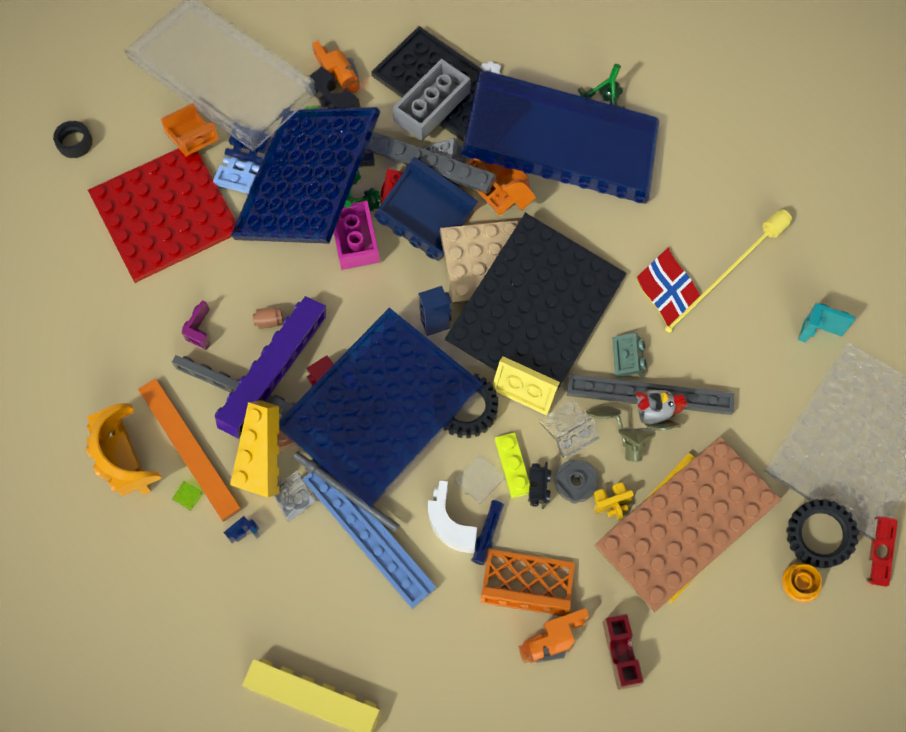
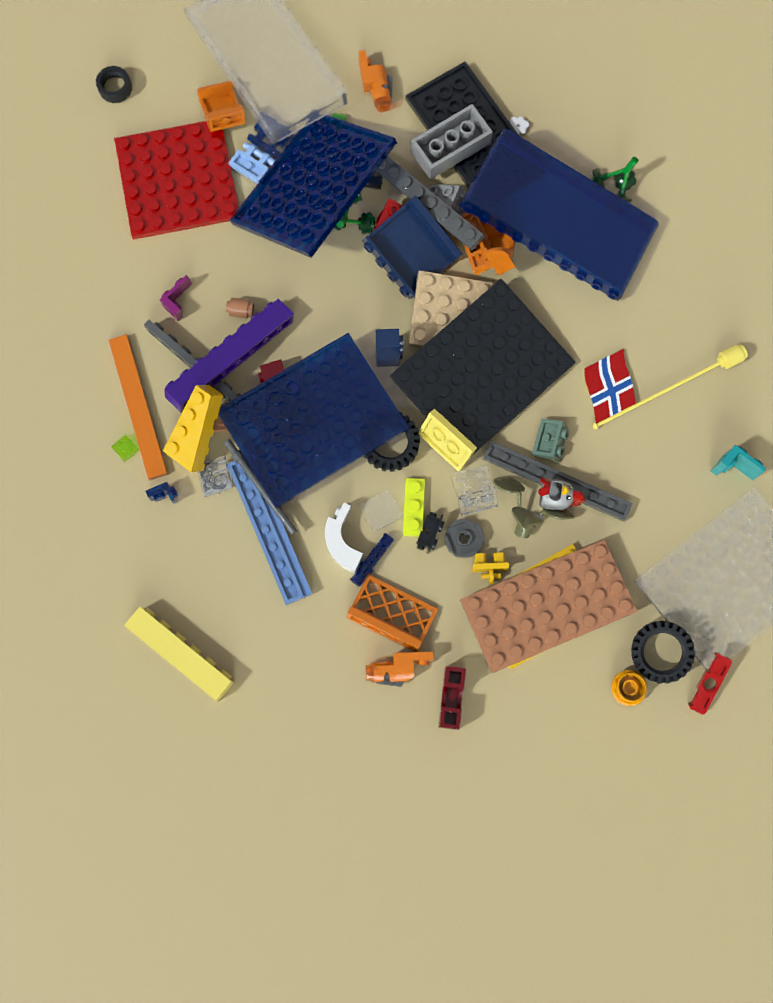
camera: 15 degrees right, 10 degrees up
(115, 454) = (73, 394): light orange piece -> none
(325, 85) = (356, 98): black arch -> none
(356, 237) = (340, 255): dark pink brick -> none

